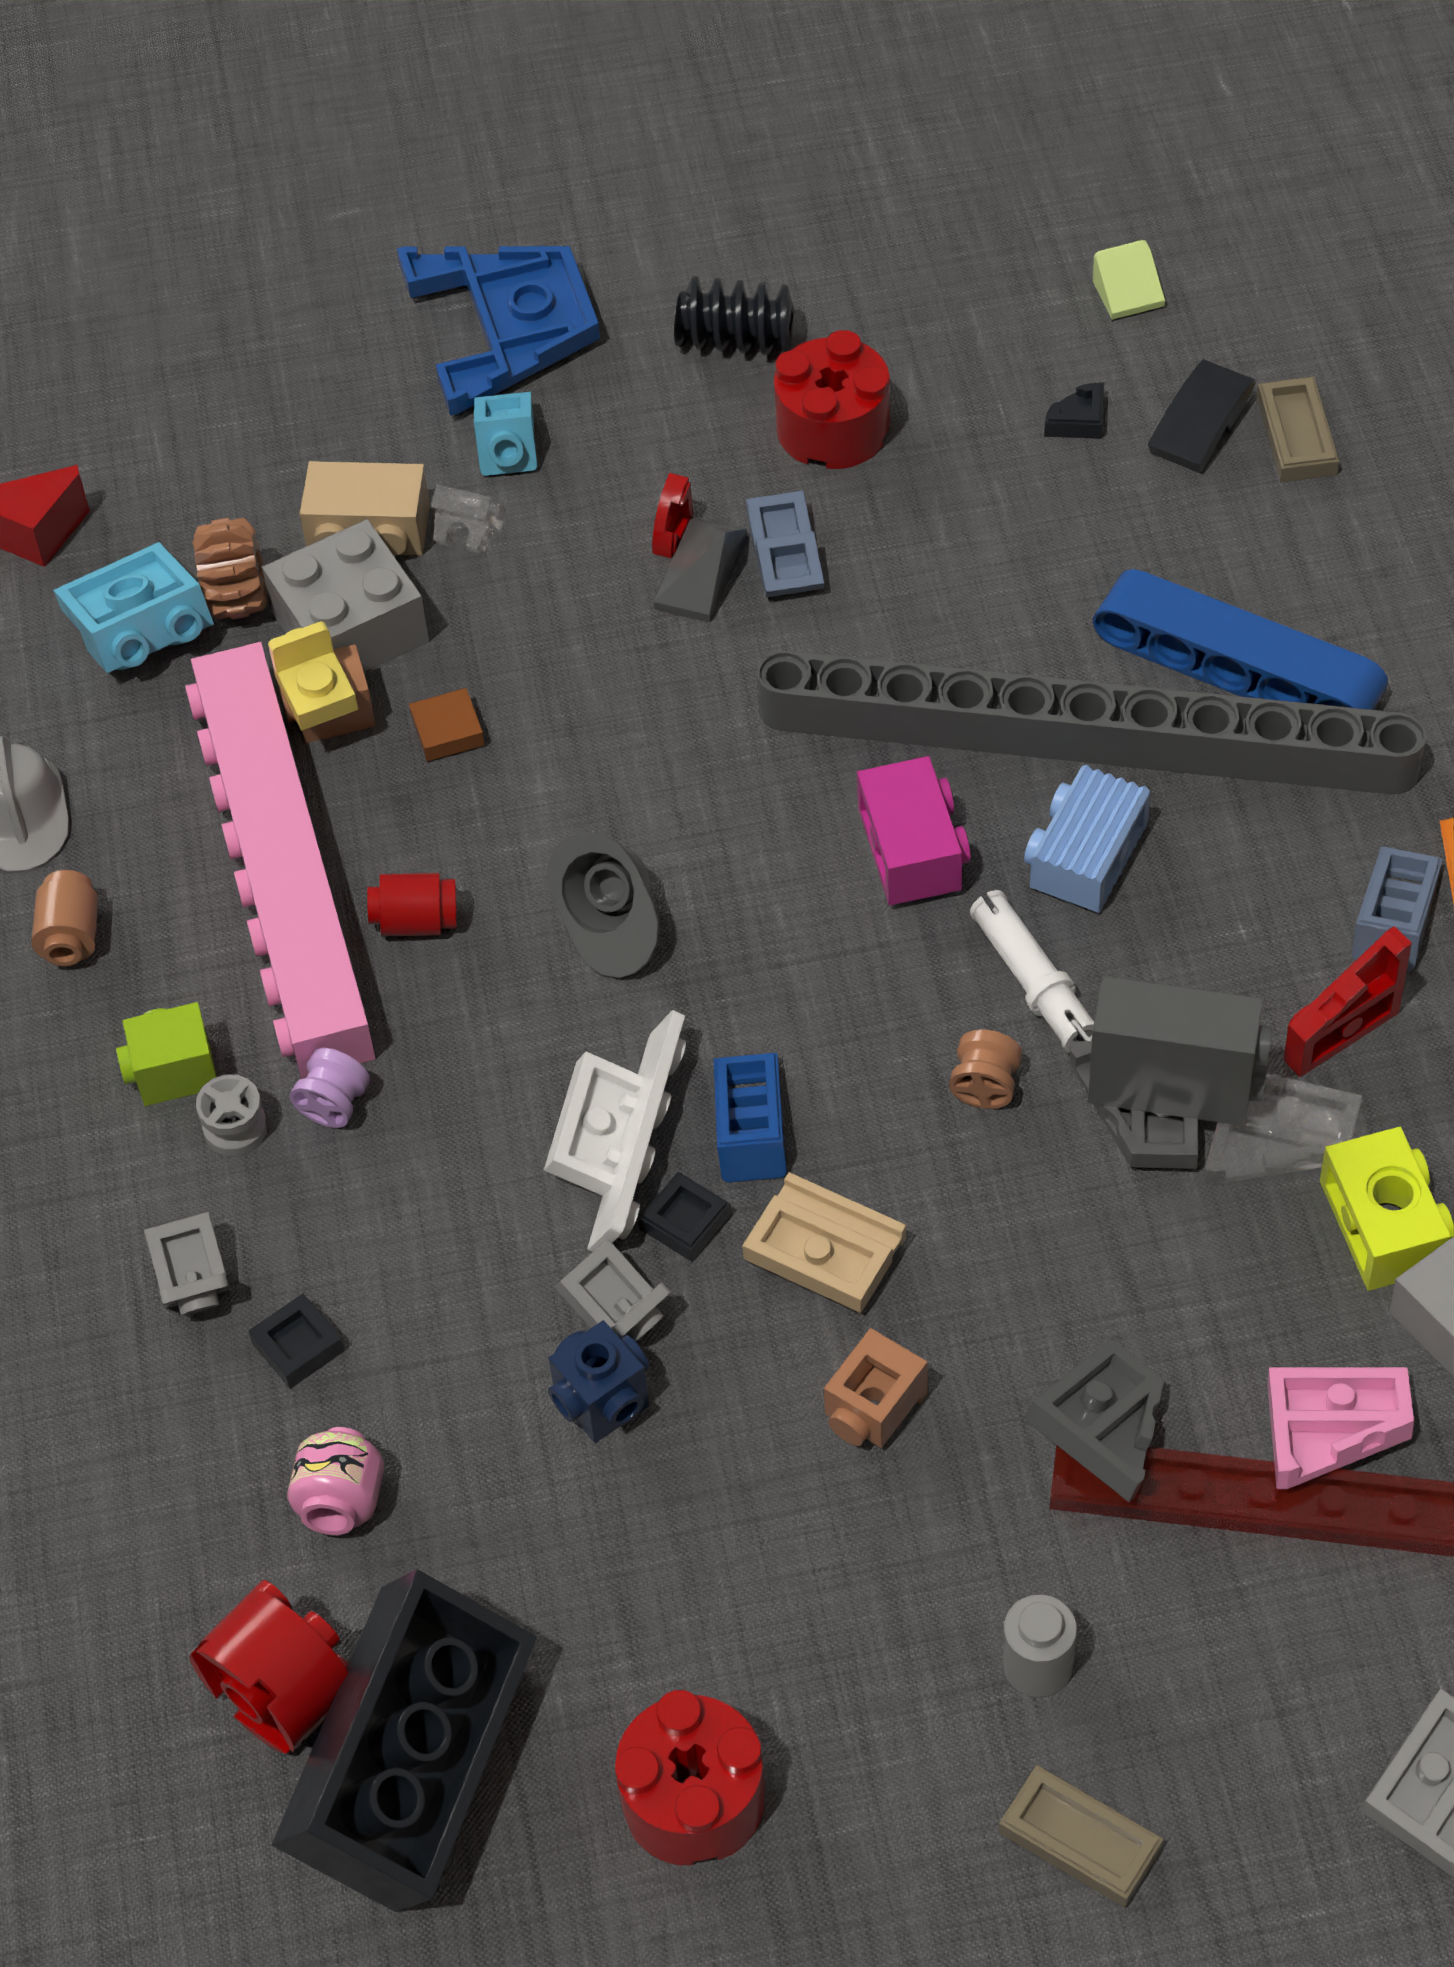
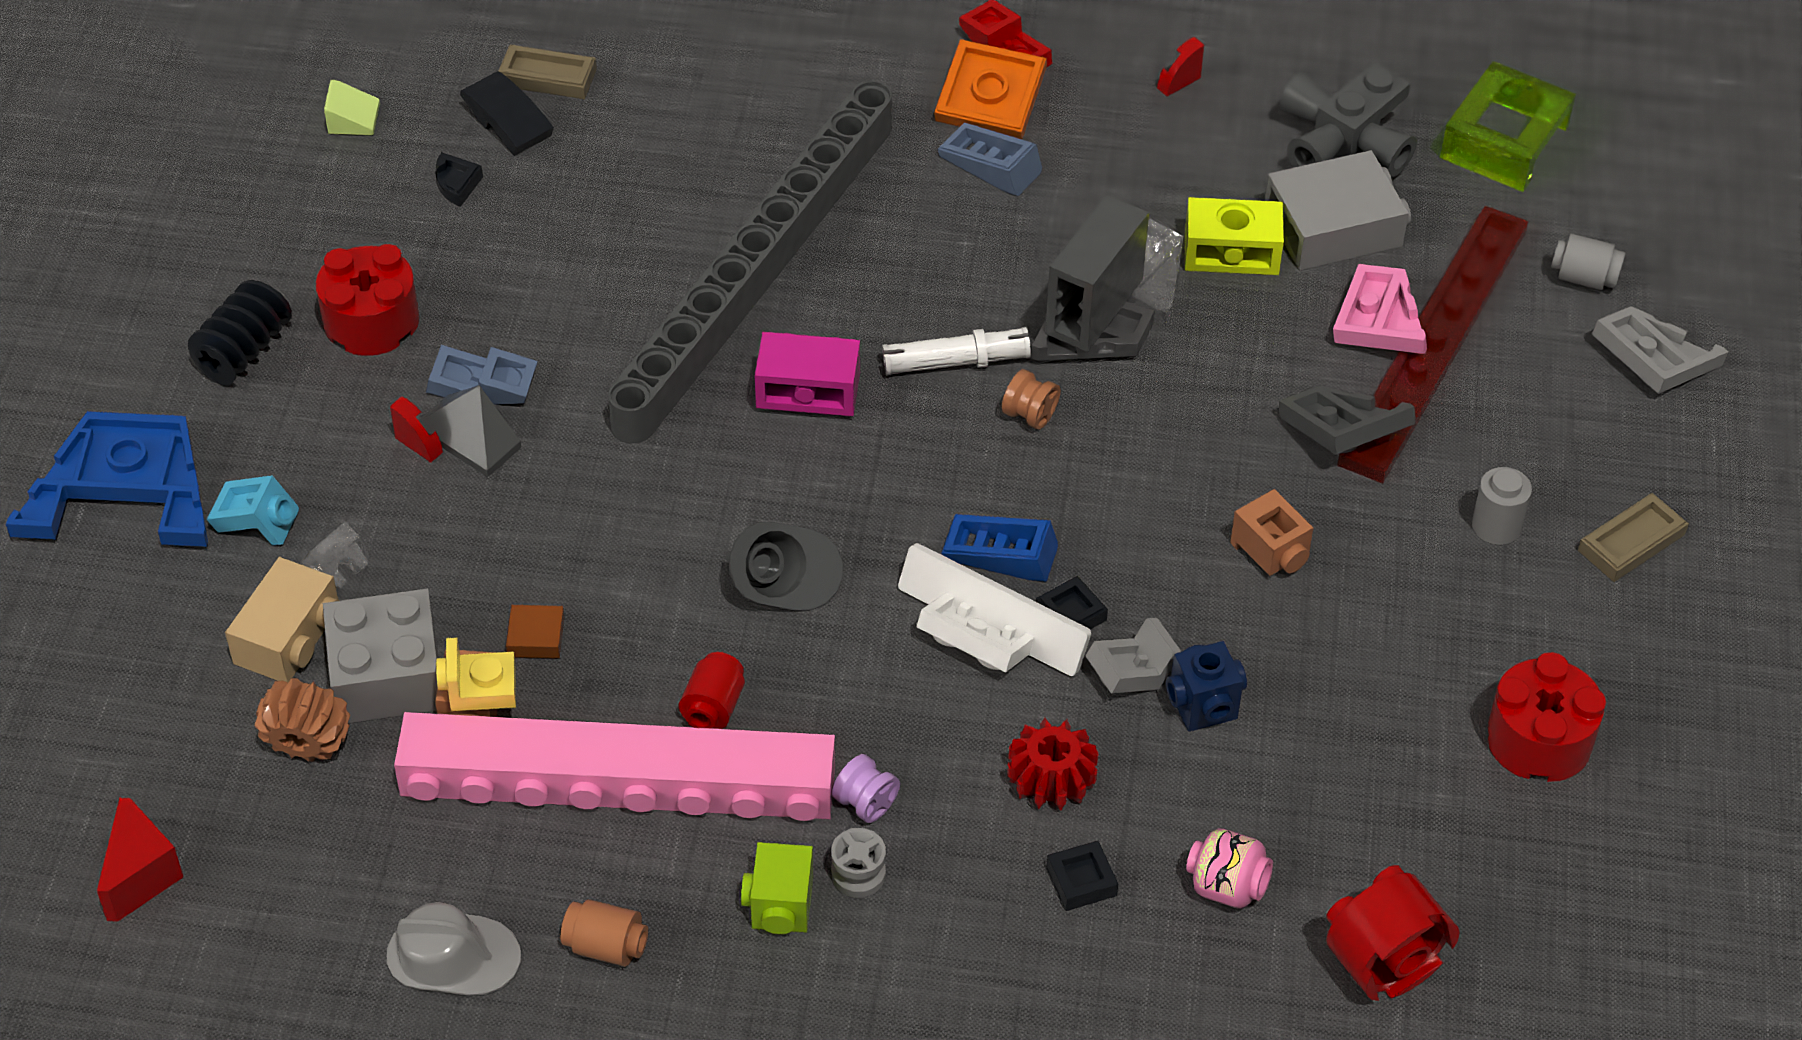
camera: 75 degrees left, 5 degrees down
(135, 607) = (293, 804): medium azure plate -> none
(188, 1263) = (994, 923): light grey bracket -> none
(405, 1742) = (1479, 864): black brick -> none
(429, 1258) = (1052, 763): none -> red gear
(824, 1242) = (1134, 531): tan plate -> none
(1088, 838) = (860, 285): light blue brick -> none
(1232, 646) = (732, 161): blue beam -> none
(1350, 1006) = (1071, 184): red wing -> none

